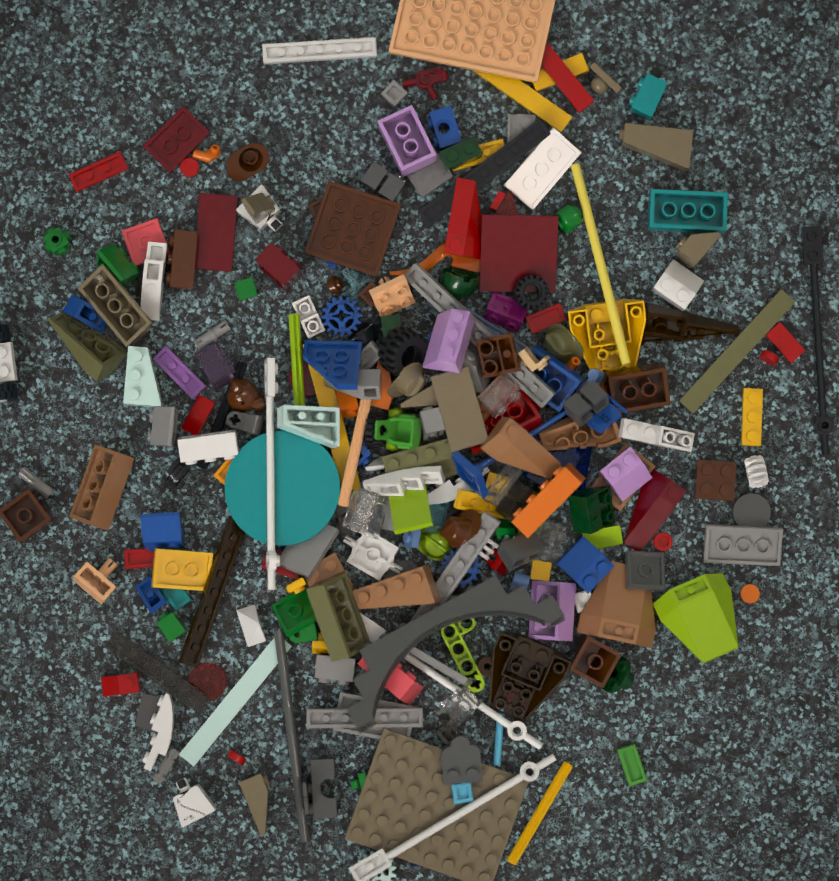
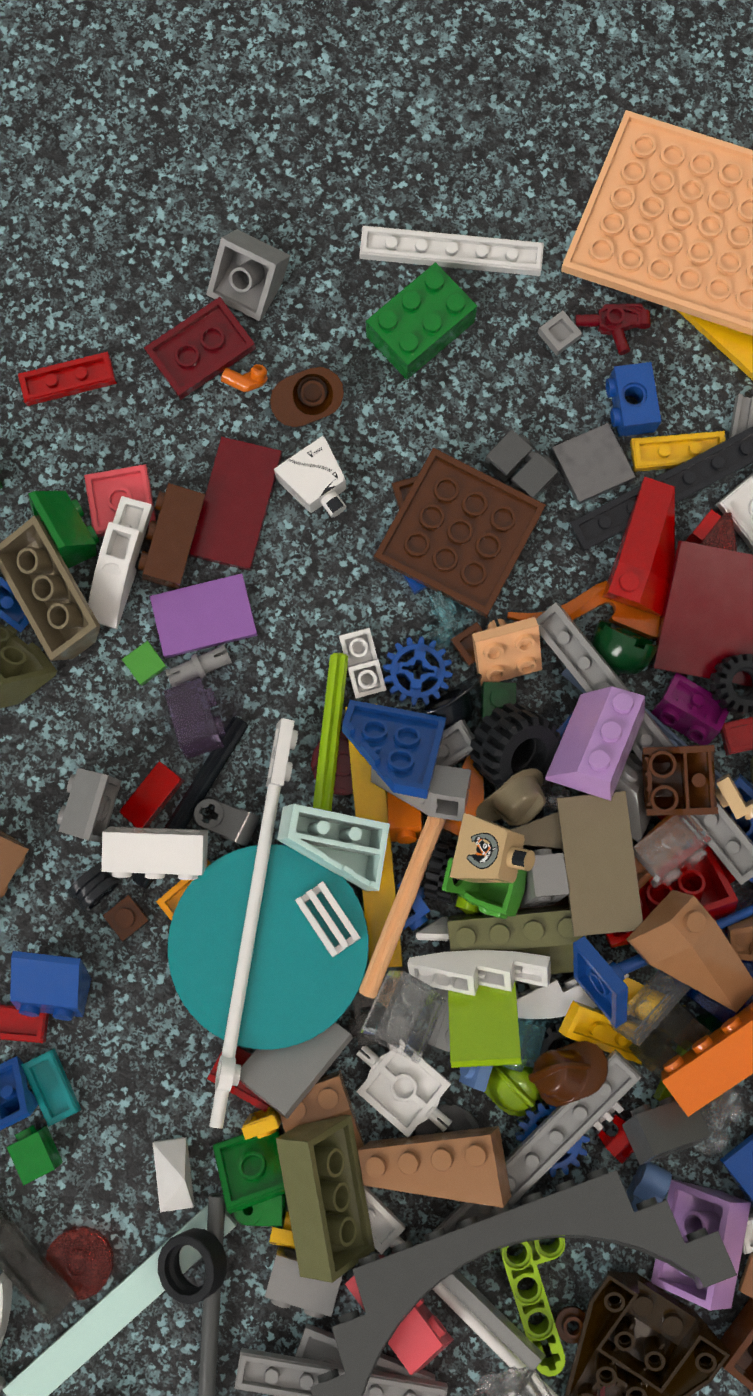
camera: 15 degrees right, 5 degrees down
(141, 380) = (66, 719): light aqua wedge -> none
(179, 338) = (144, 663): none -> bright green tile
(179, 372) = (134, 719): medium lavender tile -> none
(181, 569) = (70, 1057): yellow plate -> none
(189, 167) = (213, 395): red tile -> none
(197, 88) = (247, 273): none -> light grey slope
(197, 488) = (126, 917): none -> reddish brown plate
(209, 304) = (203, 615): none -> medium lavender tile
(212, 594) = (112, 1114): dark brown tile -> none
(244, 391) = (234, 768): reddish brown hair -> none
(246, 289) = (268, 601): green tile -> none
(258, 206) = (310, 464): dark tan slope -> none
(259, 673) = (171, 1274): none -> black tyre
(279, 267) = (328, 570): dark red brick -> none
(302, 455) = (311, 894): none -> white tile
(308, 101) = (421, 320): none -> green brick
(335, 284) = (415, 618): reddish brown plate -> none
(397, 414) = (489, 852): none -> tan torso
(407, 141) = (572, 406): lavender brick -> none
(460, 154) = (656, 440): dark green brick -> none
(505, 528) = (647, 1086): green tile -> none
(540, 570) = (689, 1167): yellow tile -> none

